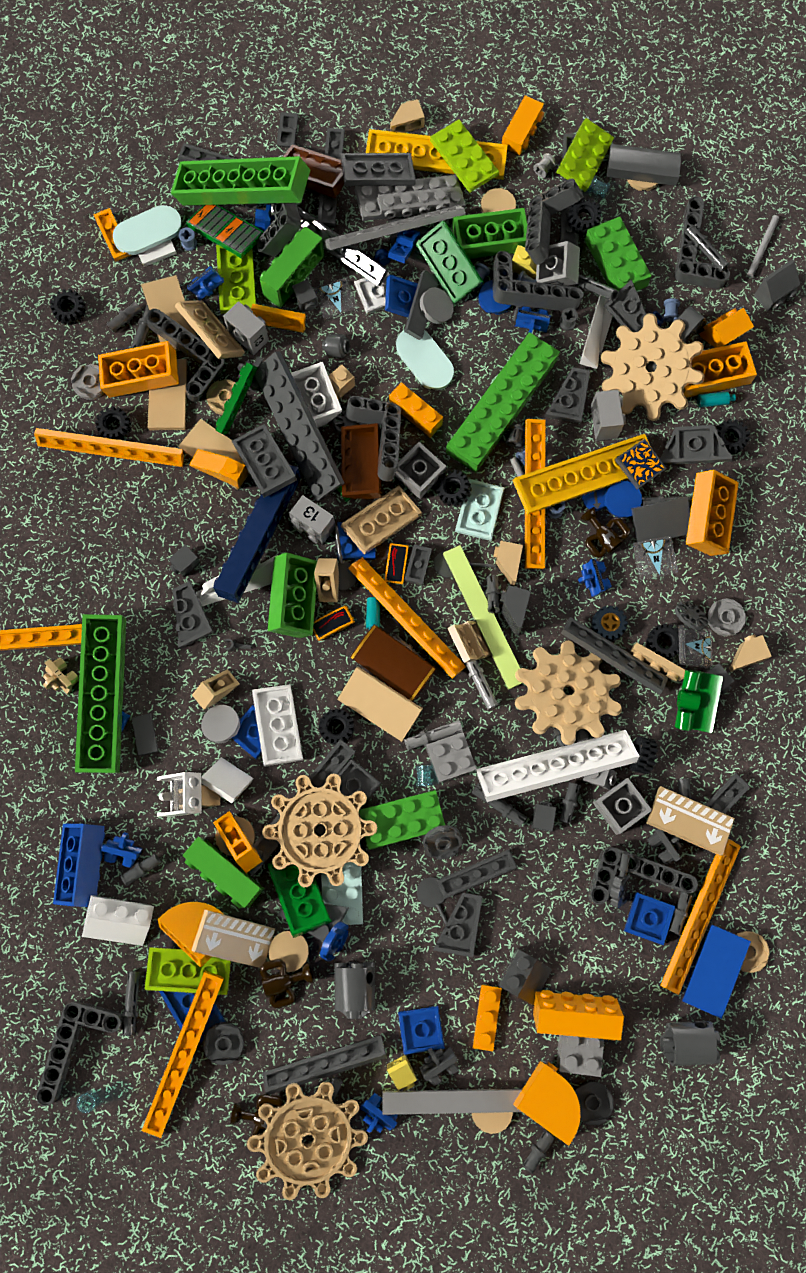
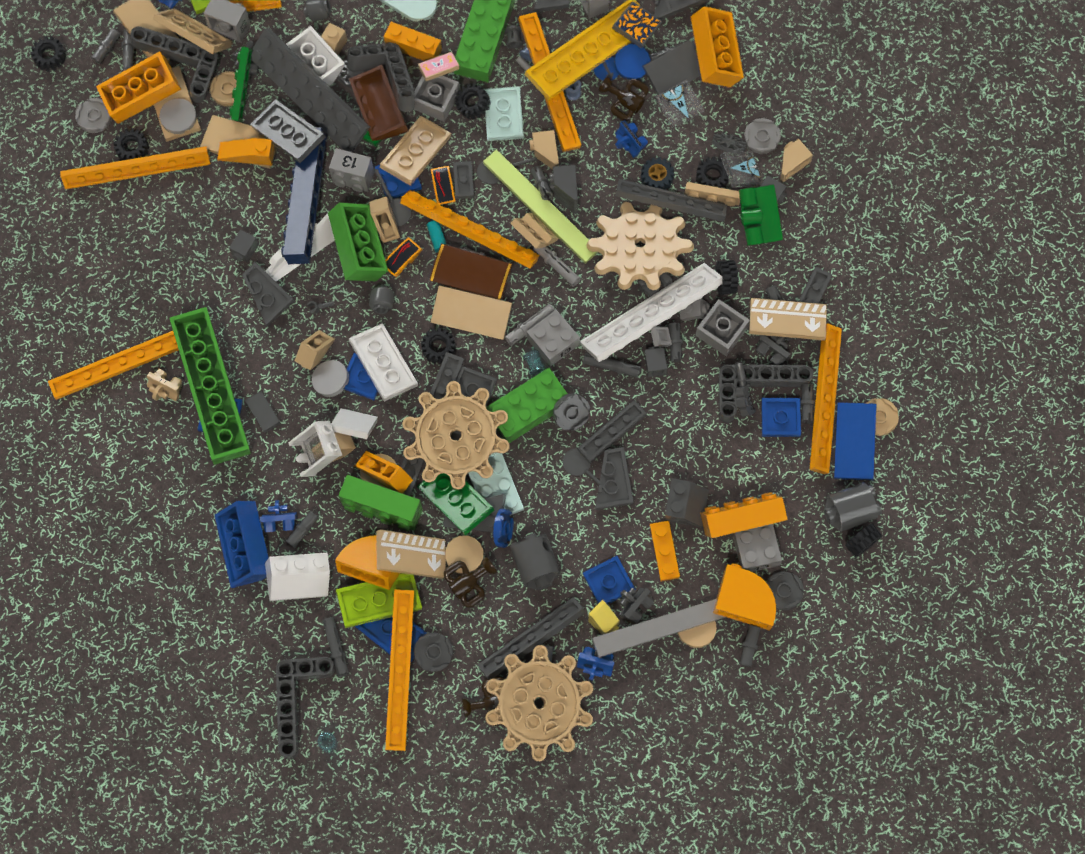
camera: 15 degrees left, 5 degrees down
(166, 409) = (178, 116): none -> light grey tile
(297, 660) = (381, 299): none -> dark grey head
(431, 443) = (438, 66): none -> tile
(557, 795) = (661, 336): none -> light grey tile
(691, 1083) = (863, 540): none -> black tyre

